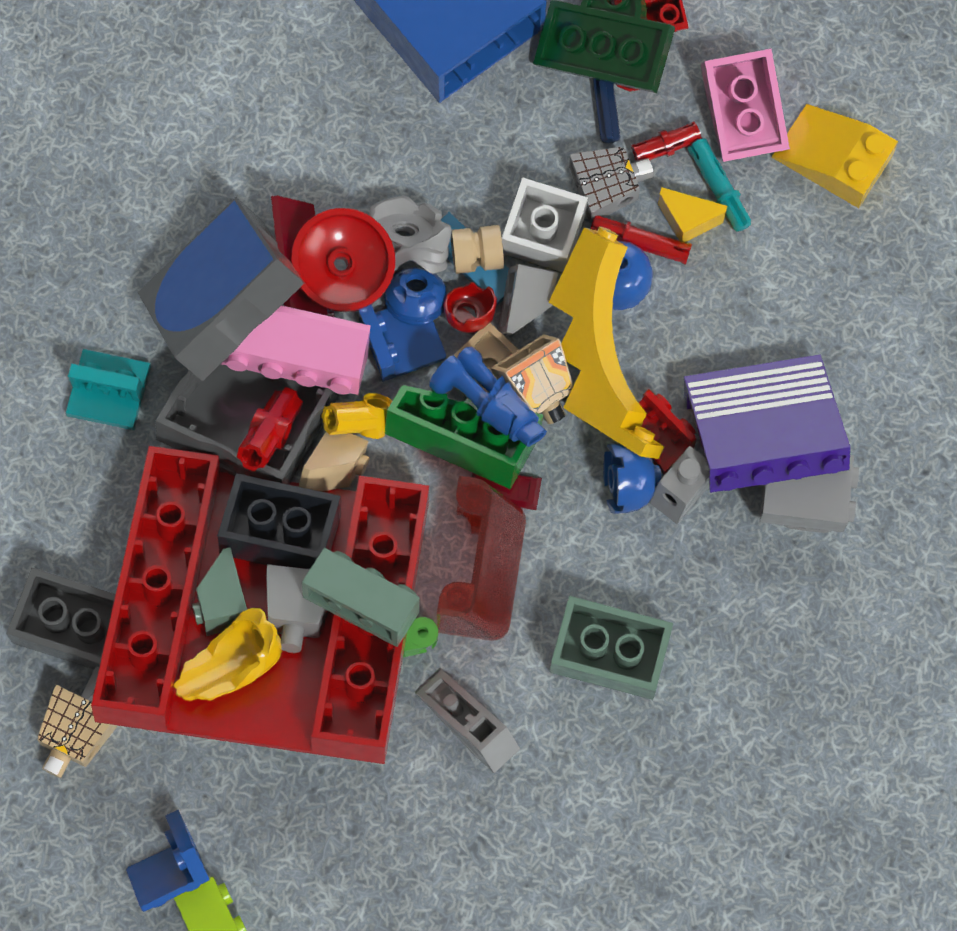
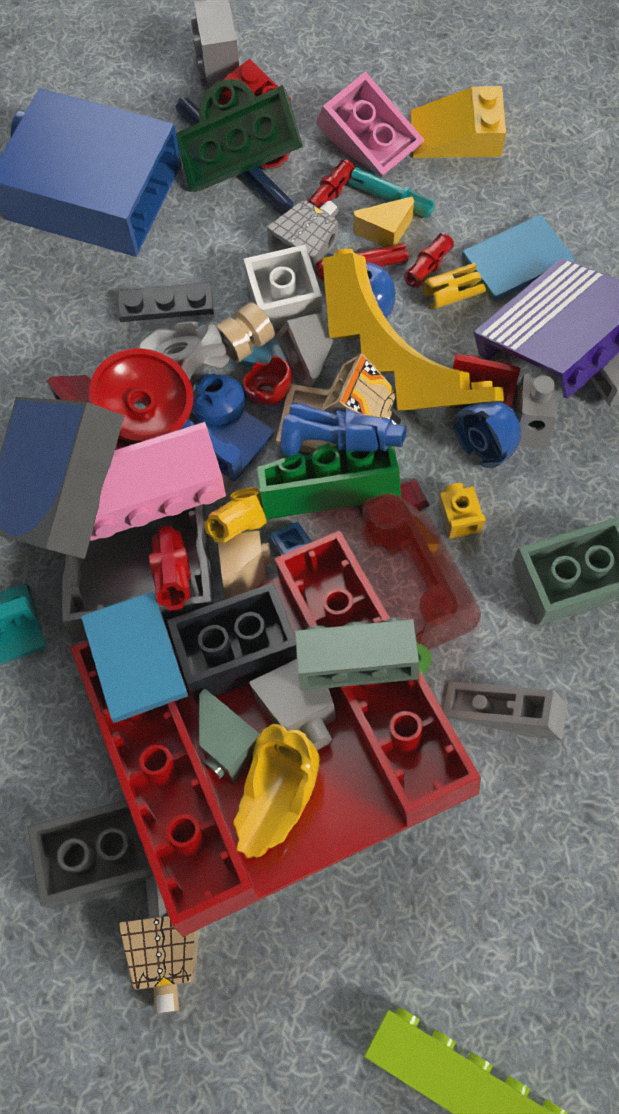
camera: 30 degrees left, 5 degrees down
(169, 871) = (342, 1033): blue bracket -> none
(192, 486) = (134, 657): none -> dark azure tile
(392, 465) = (288, 539): none -> blue tile
(434, 168) = (165, 302): none -> plate
(551, 543) = (458, 520): none -> yellow brick
(698, 308) = (447, 286): none -> yellow arm
(703, 277) = (428, 260): none -> red pin
(790, 324) = (516, 256): none -> dark azure tile

